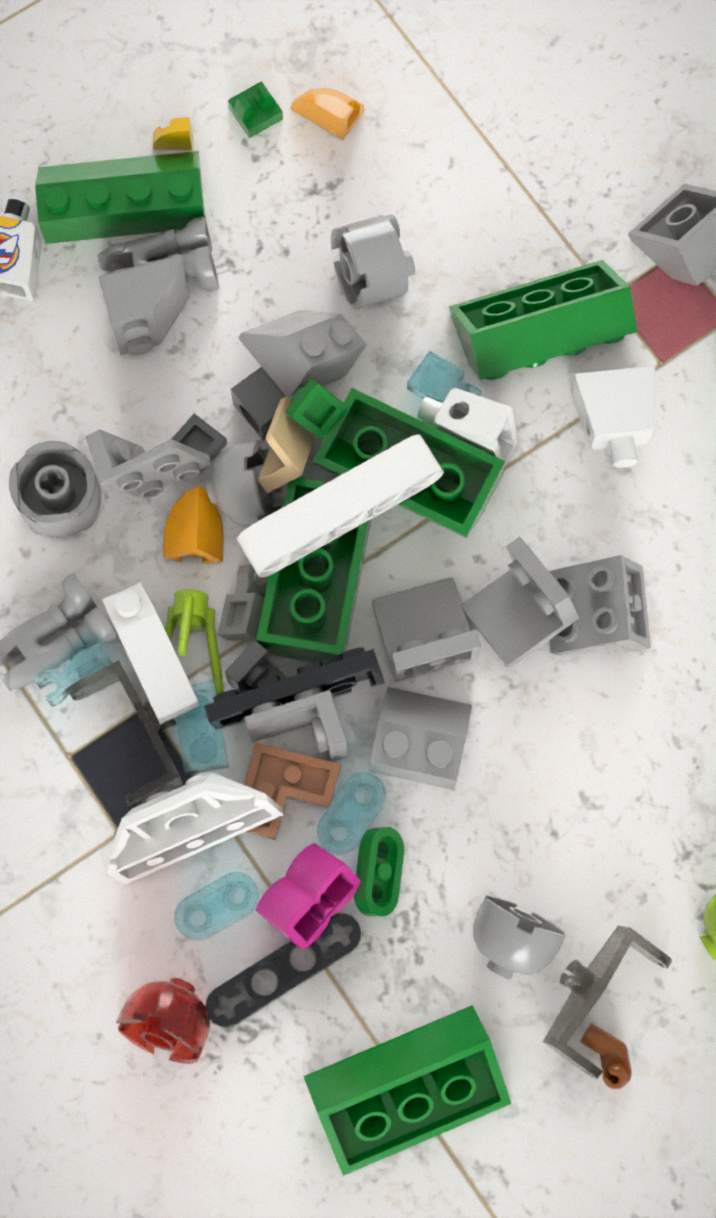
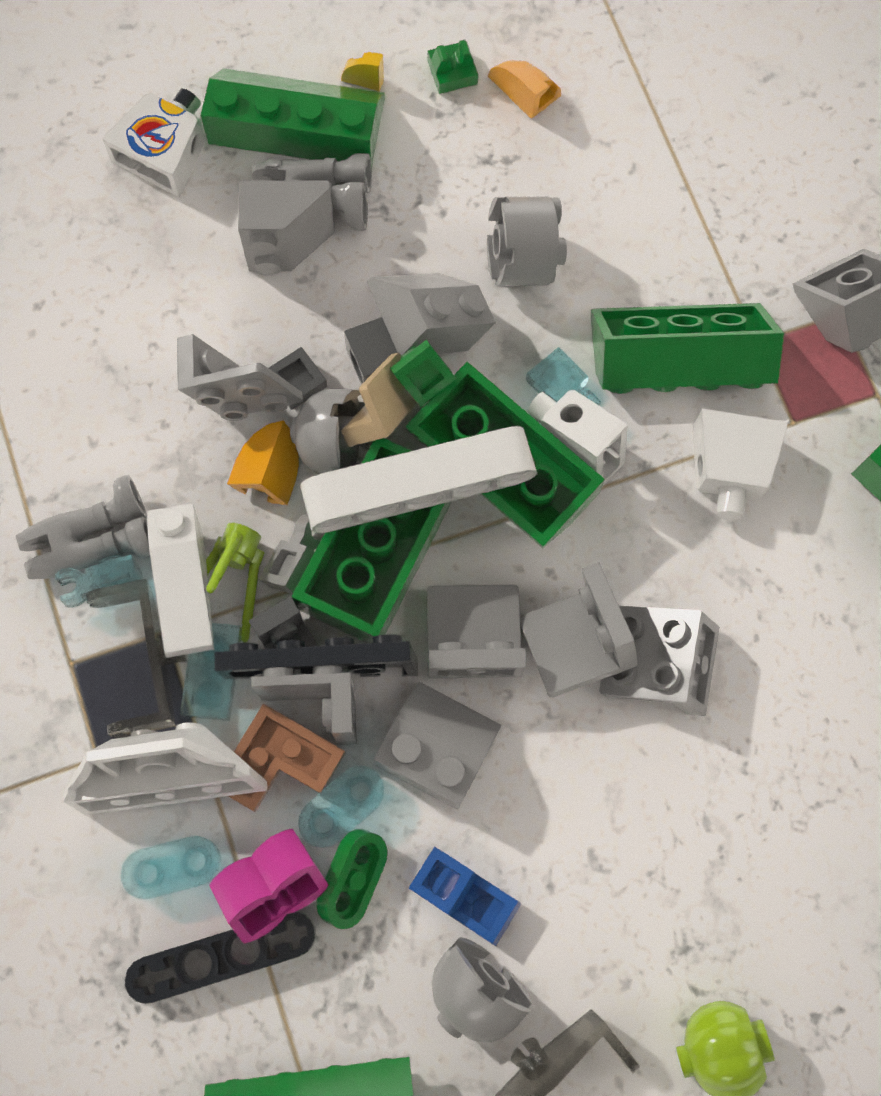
camera: 10 degrees right, 0 degrees up
(33, 486) = (136, 386): light grey brick -> none
(166, 1018) = (79, 977): clear red cylinder -> none
(481, 861) = (465, 896): none -> blue slope

